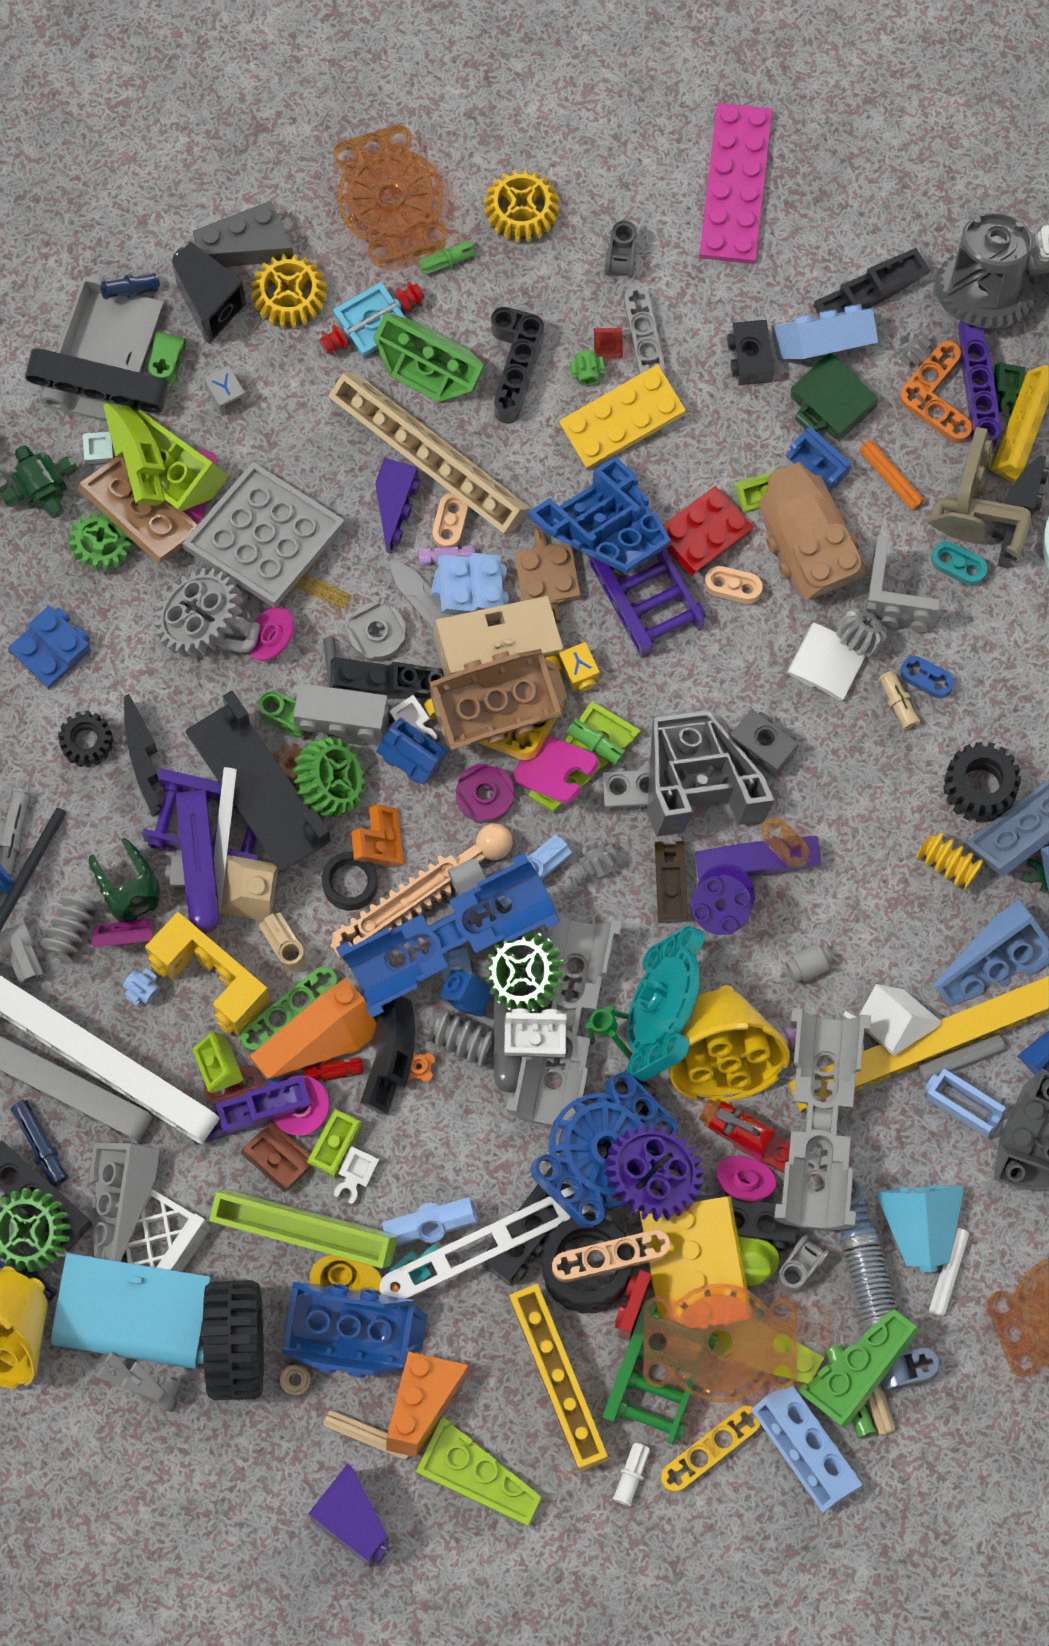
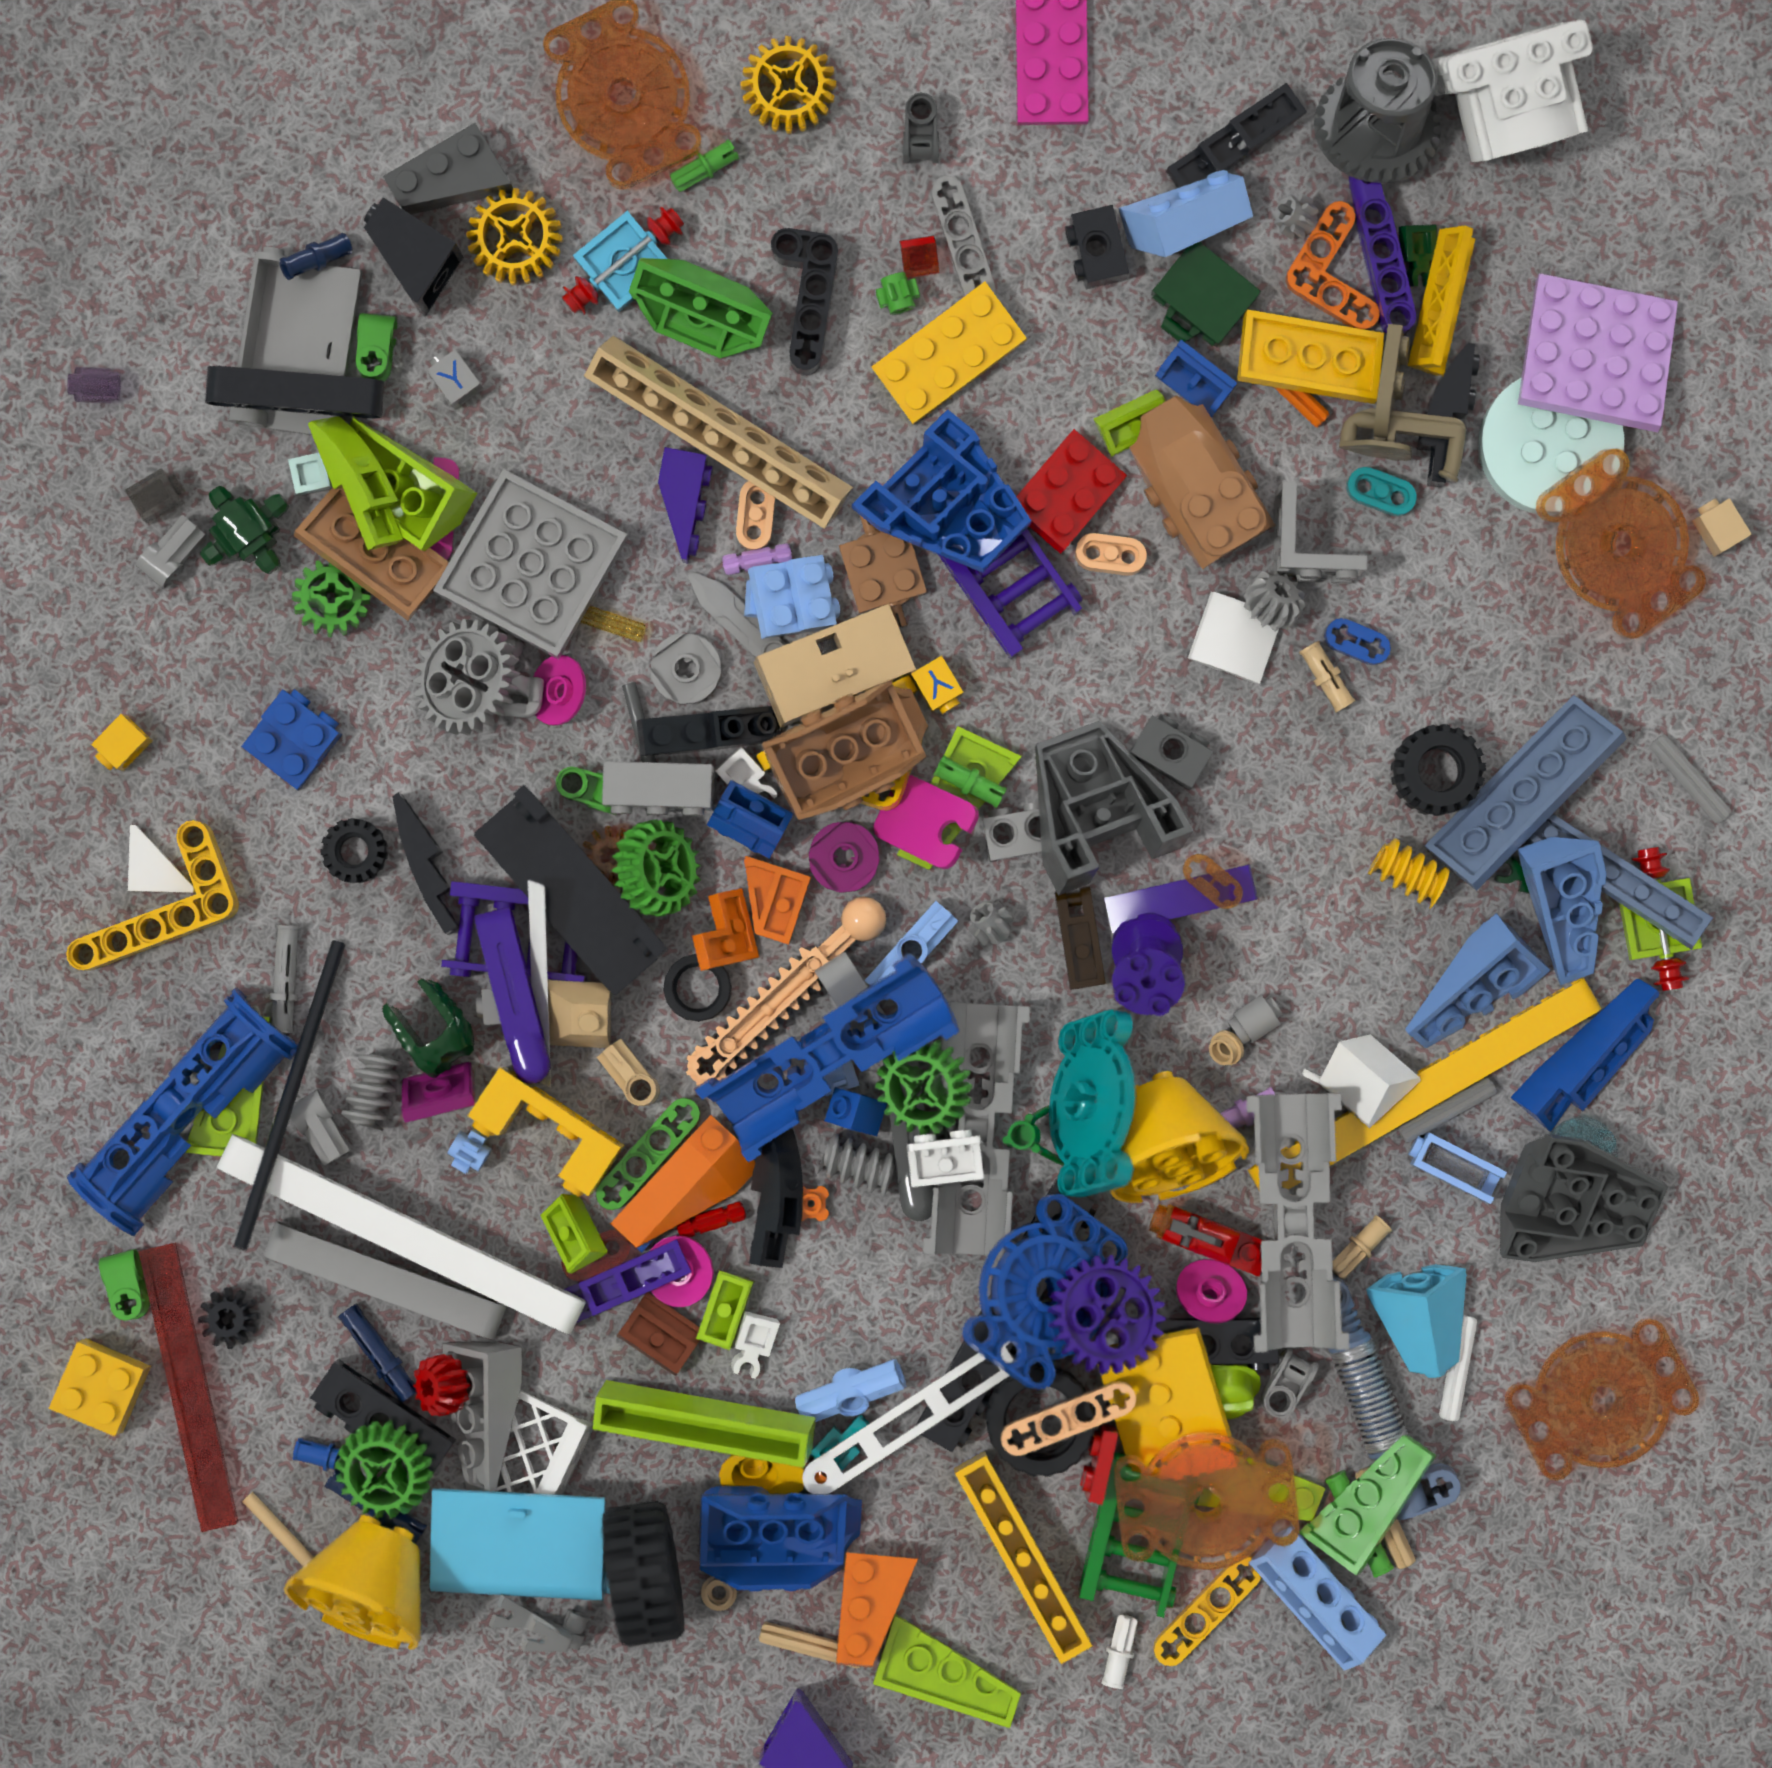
camera: 15 degrees left, 15 degrees up
(87, 1171) = (441, 1385): none -> red gear
(424, 818) = (775, 898): none -> orange wing
(776, 986) = (1226, 1048): none -> tan plate
(877, 1159) = (1360, 1247): none -> tan axle
(911, 452) = (1310, 356): none -> yellow plate

